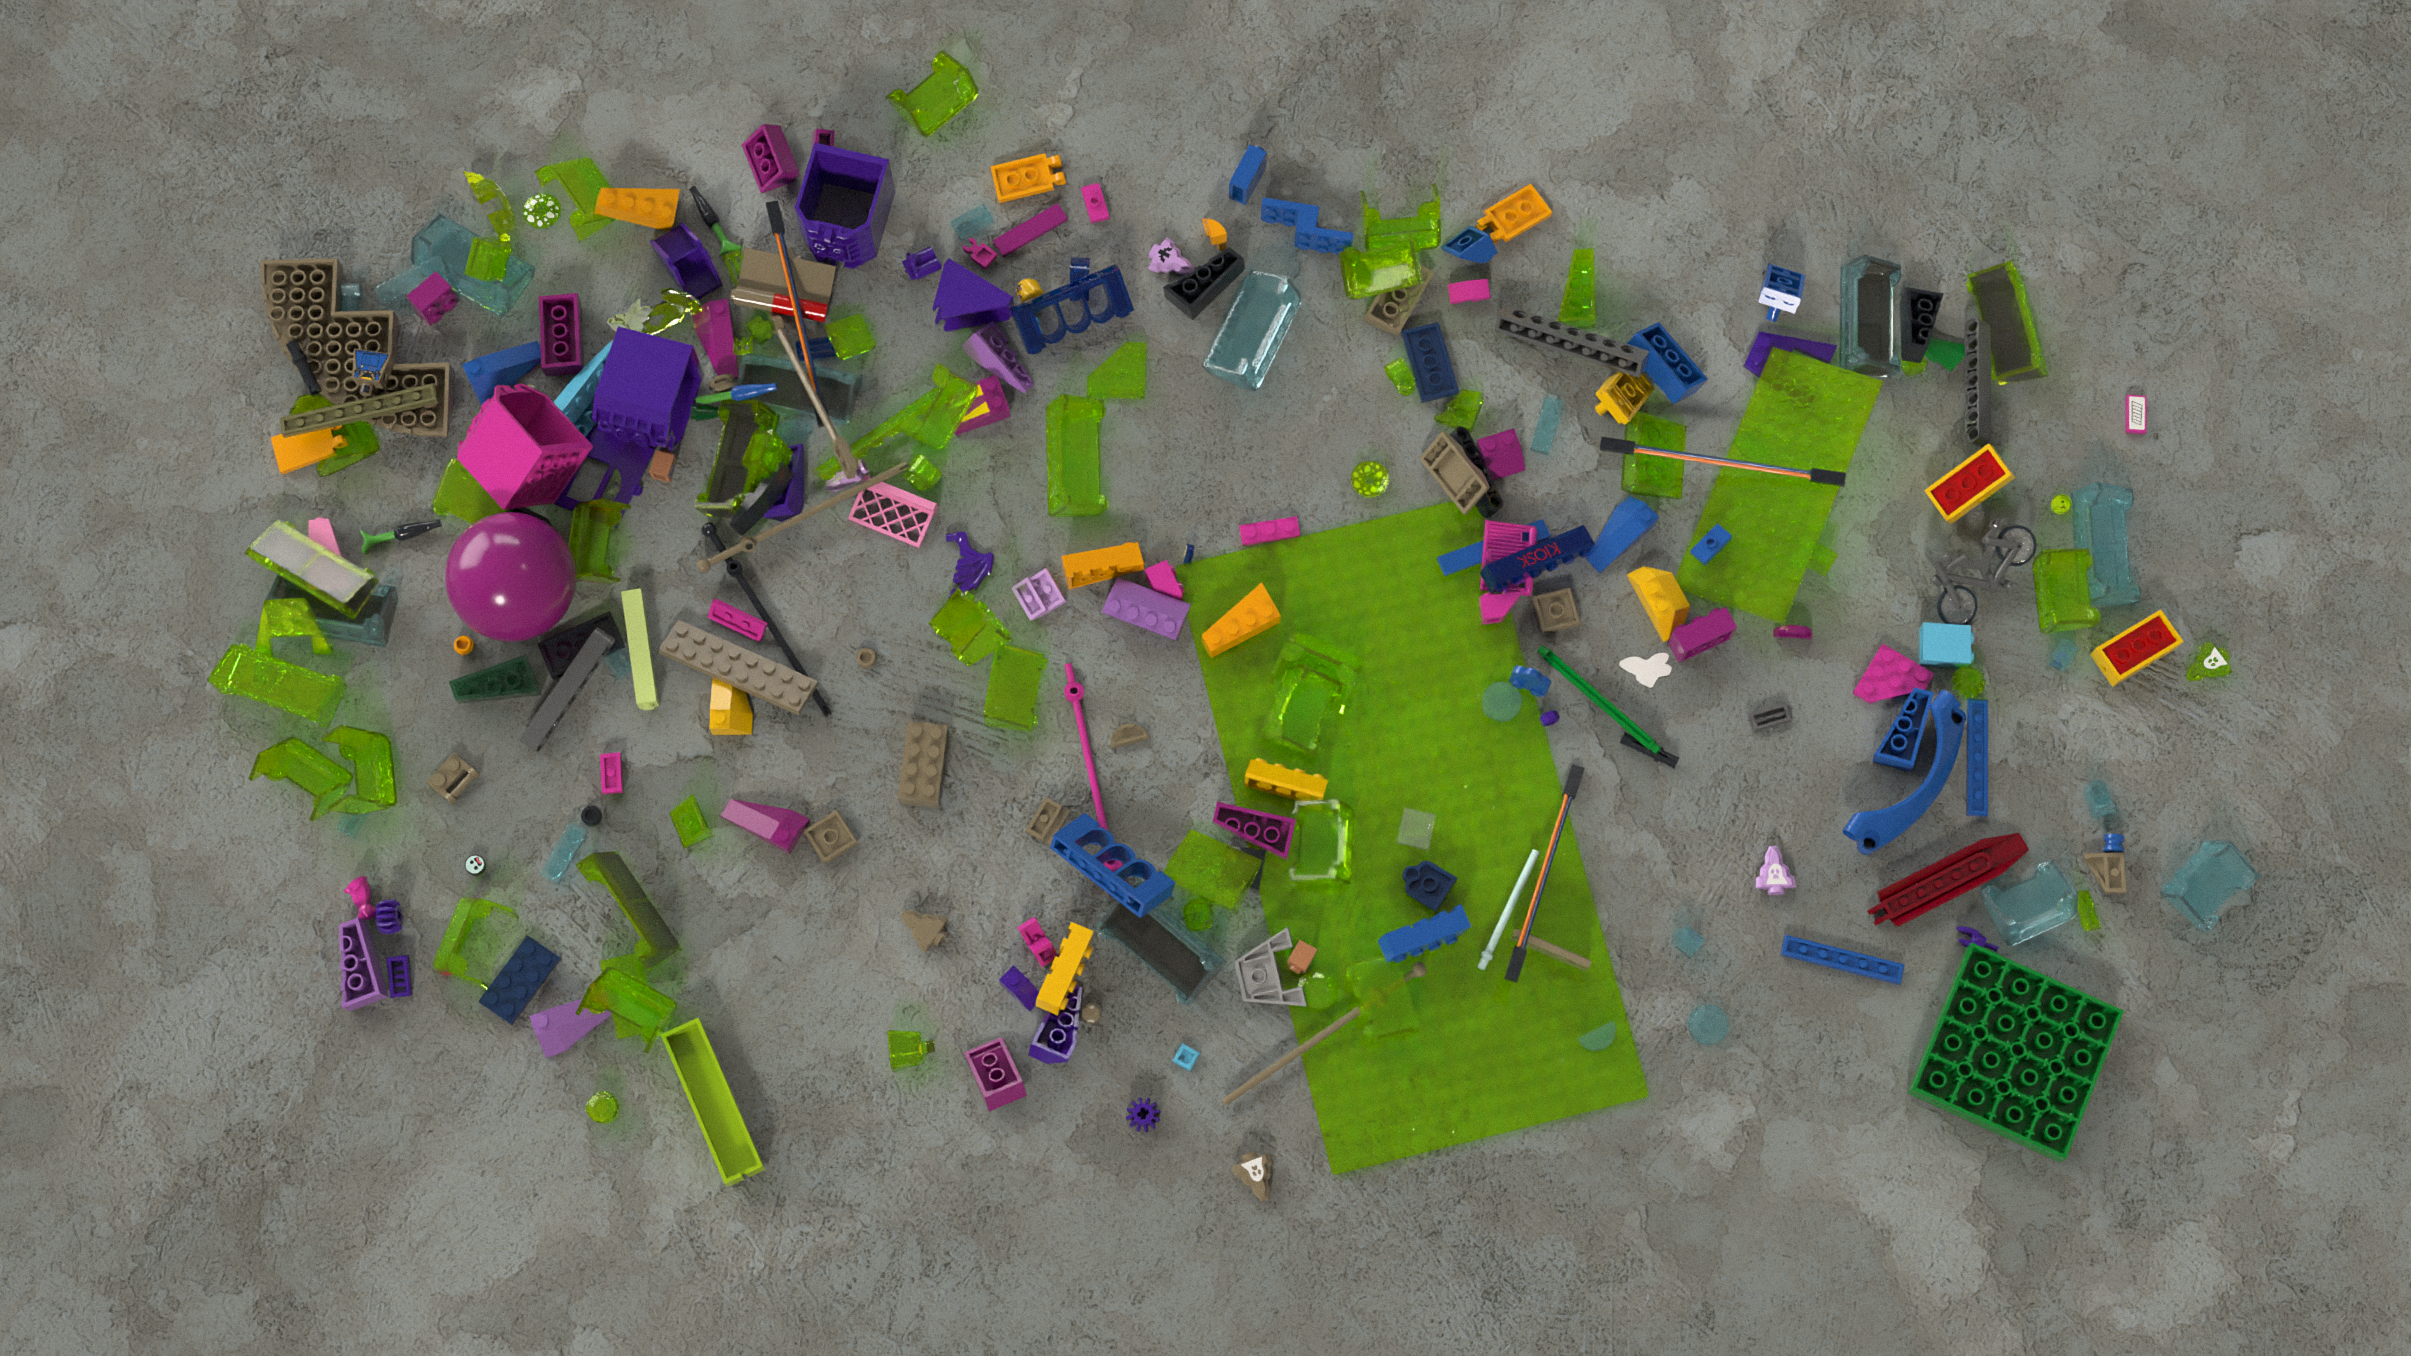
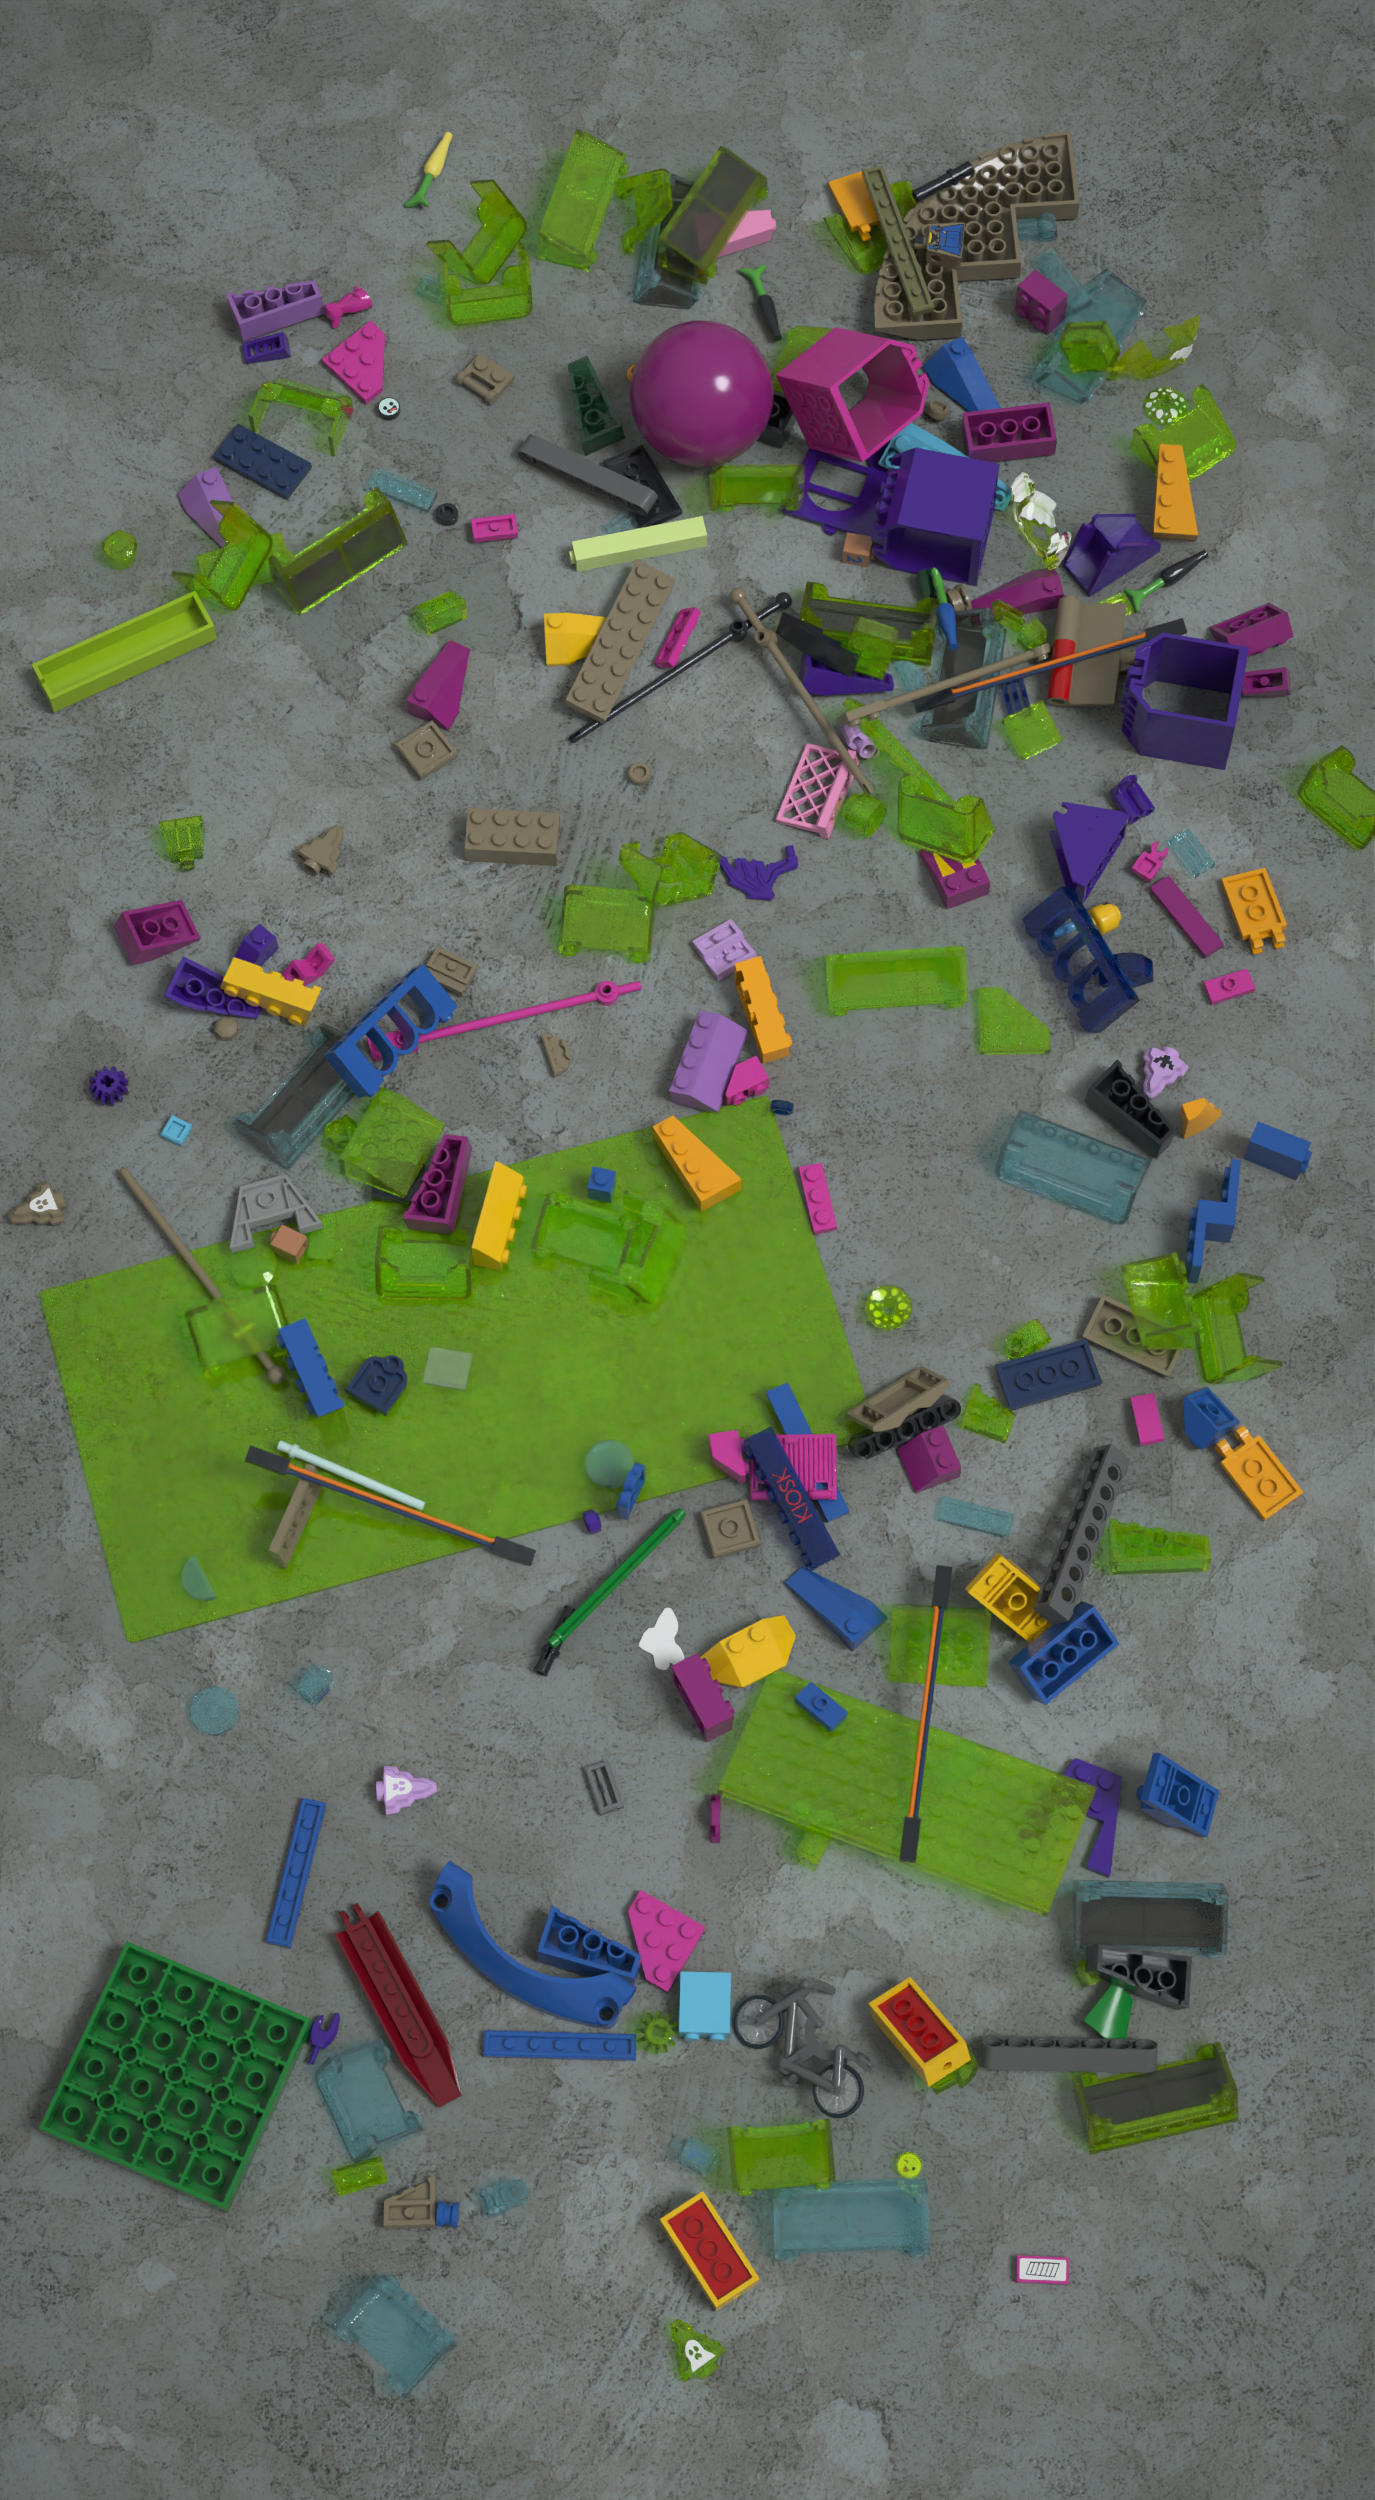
camera: 90 degrees right, 5 degrees down
(222, 820) = (432, 170): none -> piece
(389, 916) = (327, 329): dark purple gear -> none
(422, 889) = (360, 362): none -> dark pink plate
(990, 350) = (1021, 884): medium lavender wedge -> none
(1257, 697) = (601, 1184): none -> blue brick

